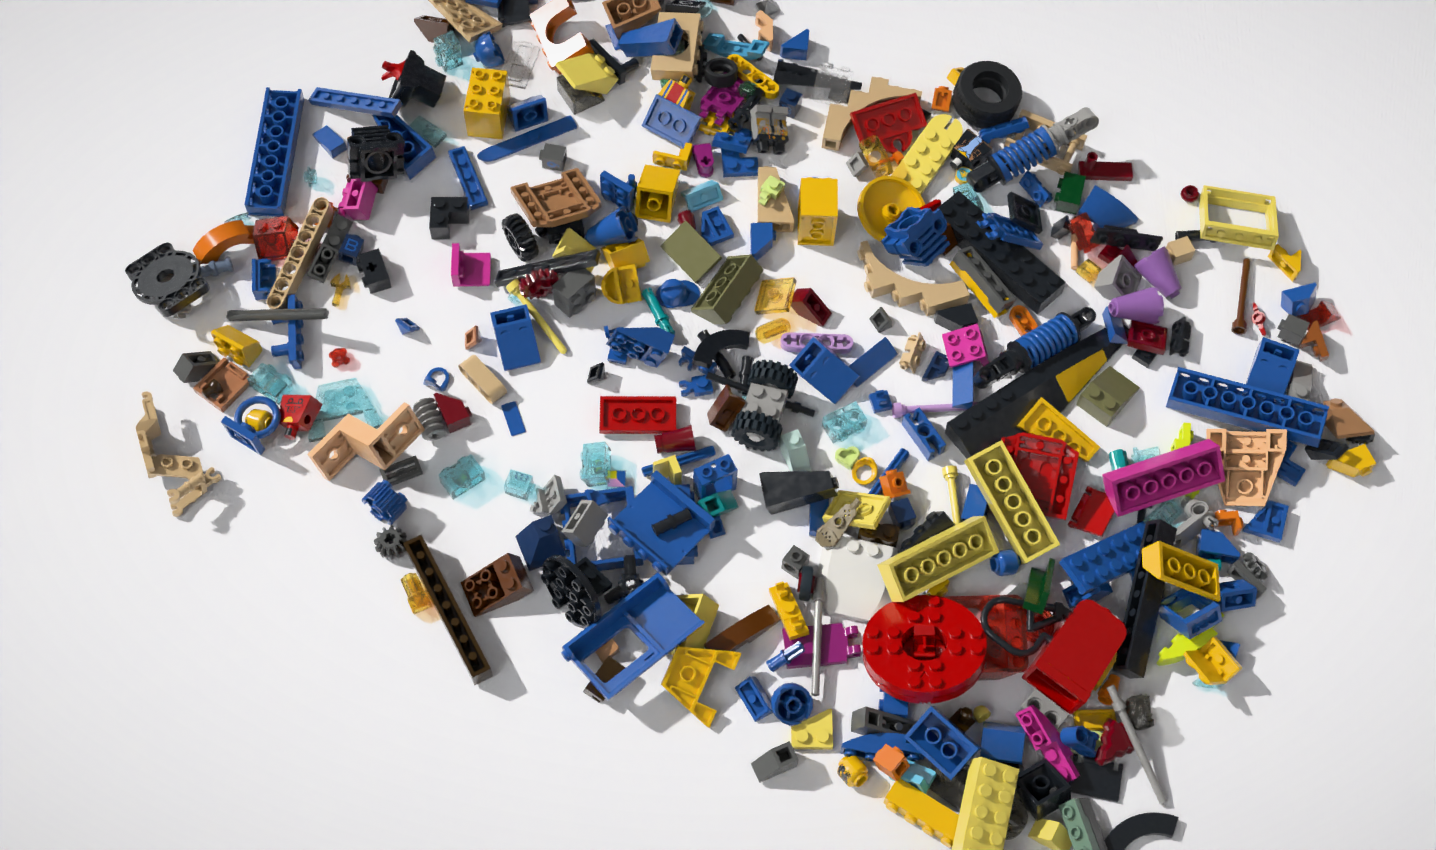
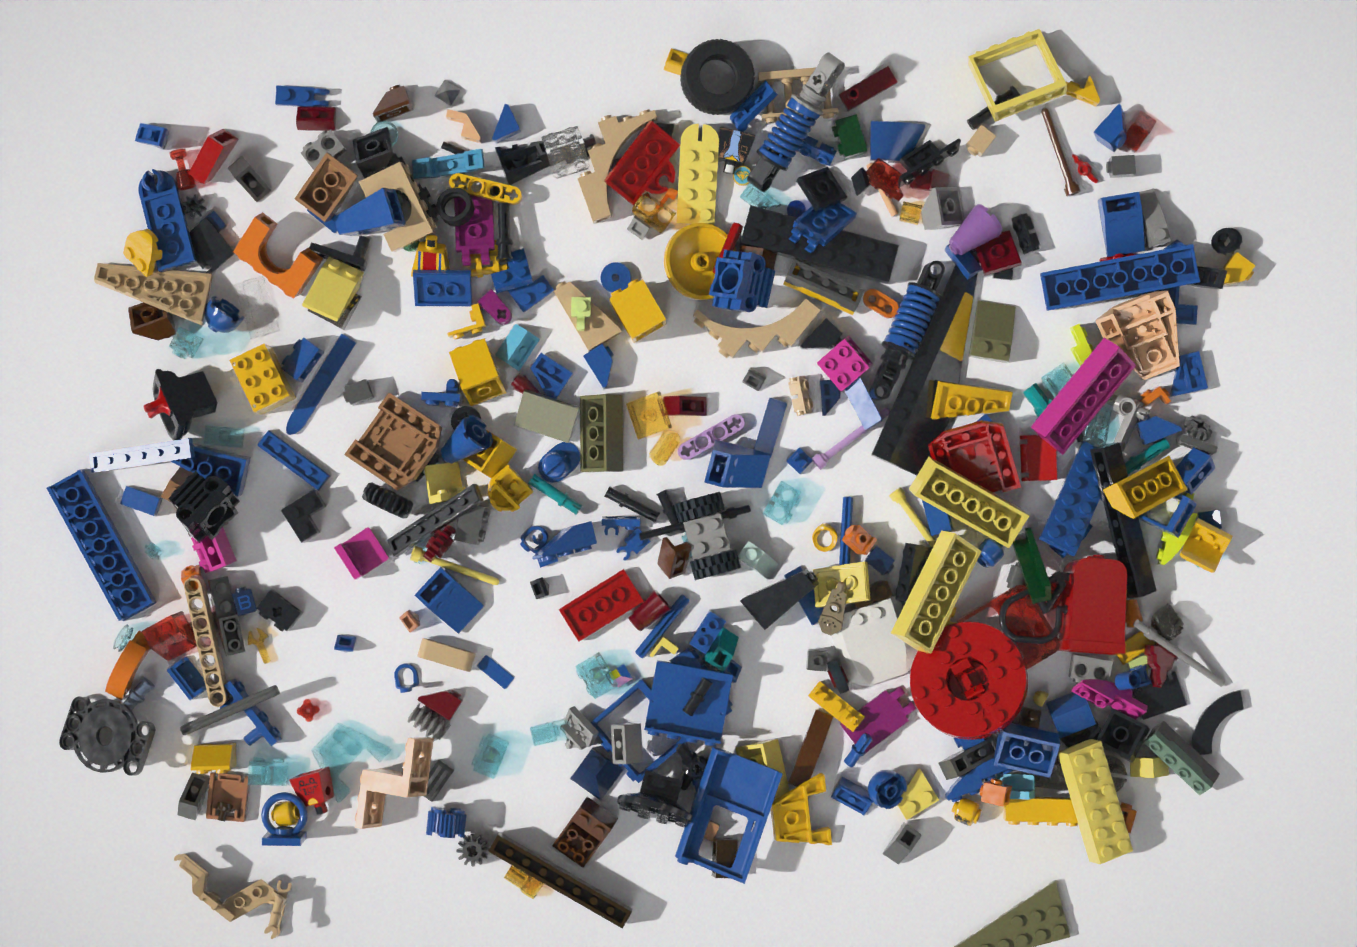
camera: 25 degrees left, 25 degrees up
(597, 497) = (619, 711): blue tile -> none
(718, 341) = (628, 497): black tile -> none
(747, 89) = (491, 210): clear green piece -> none
(769, 128) = (538, 241): hips -> none
(792, 100) = (538, 197): dark blue brick -> none
(819, 599) = (855, 683): light grey bar -> none
(847, 457) = (802, 532): yellowish green tile -> none
(924, 427) = (858, 481): blue piece -> none
(941, 99) = (675, 102): orange bracket -> none
(1160, 272) = (975, 178): medium lavender cone -> none
(1192, 190) = (958, 61): dark red plate -> none
(1315, 337) = (1144, 163): dark orange slope -> none
(1344, 420) = (1210, 236): medium nougat slope -> none

